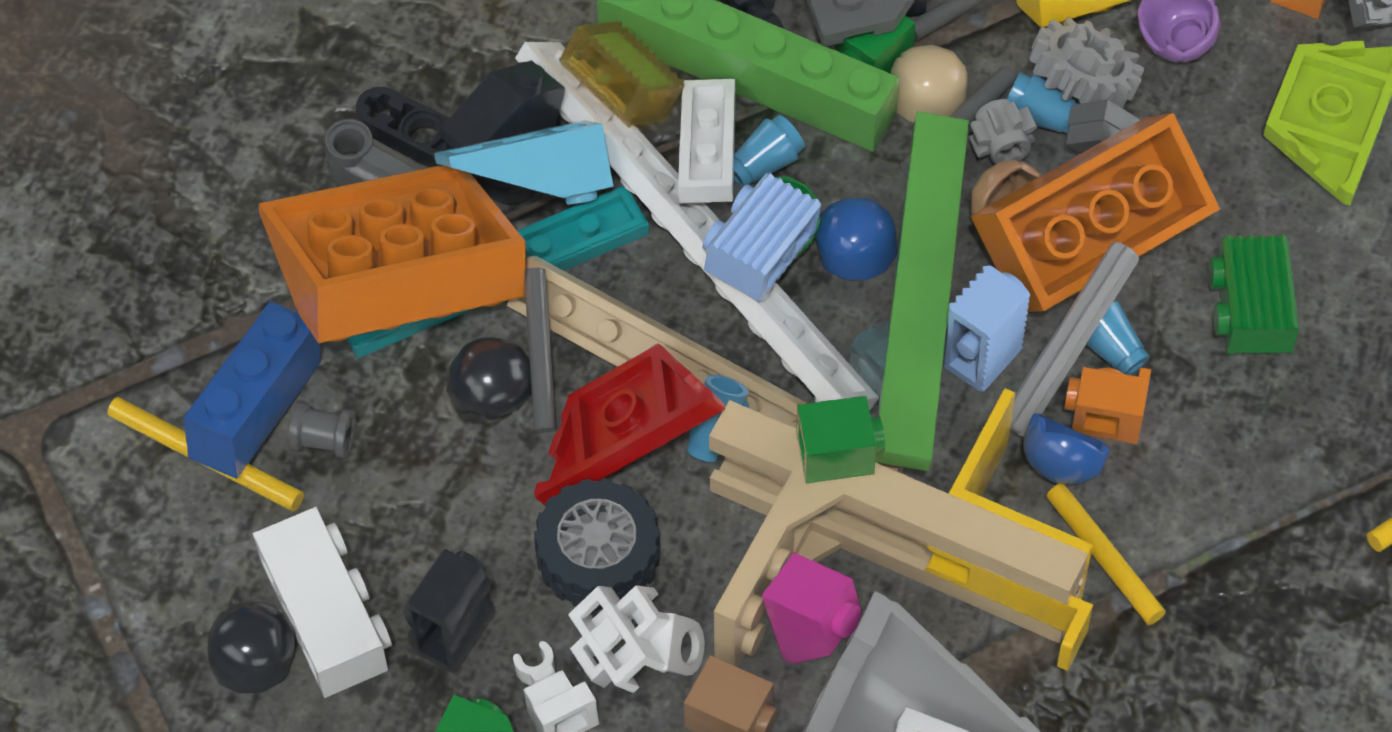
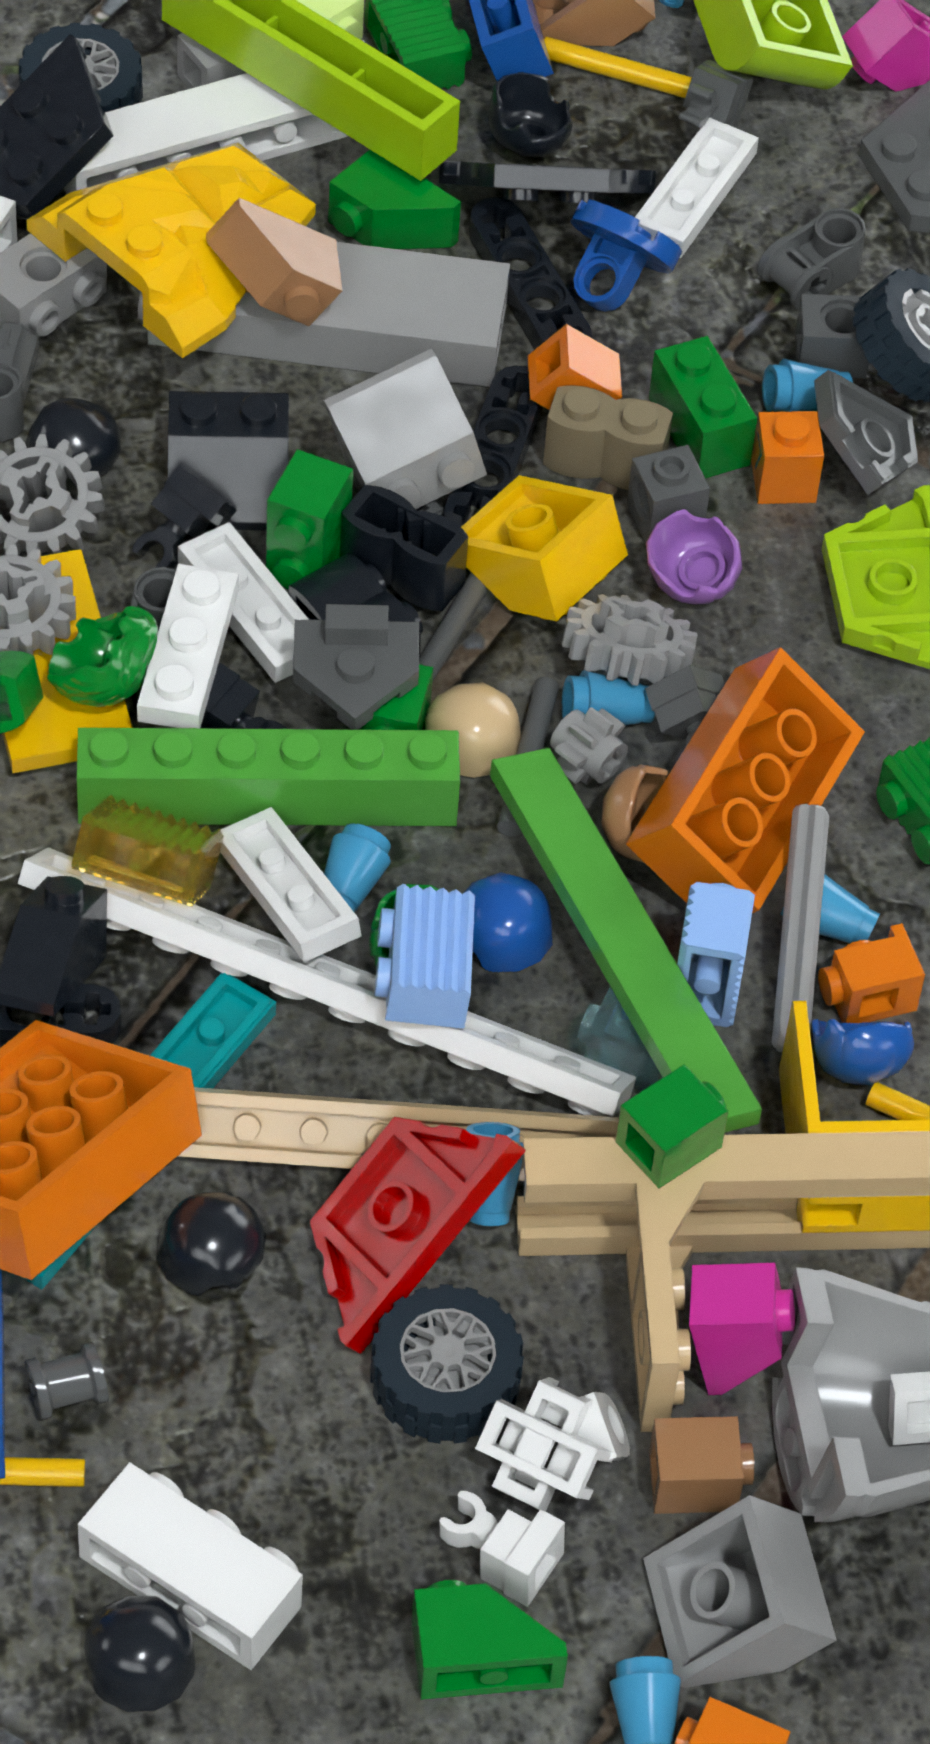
camera: 35 degrees left, 5 degrees down
(449, 609) = (350, 1503): black brick -> none
(539, 350) = (254, 1187): dark grey bar -> none
(556, 160) = (144, 973): medium azure slope -> none

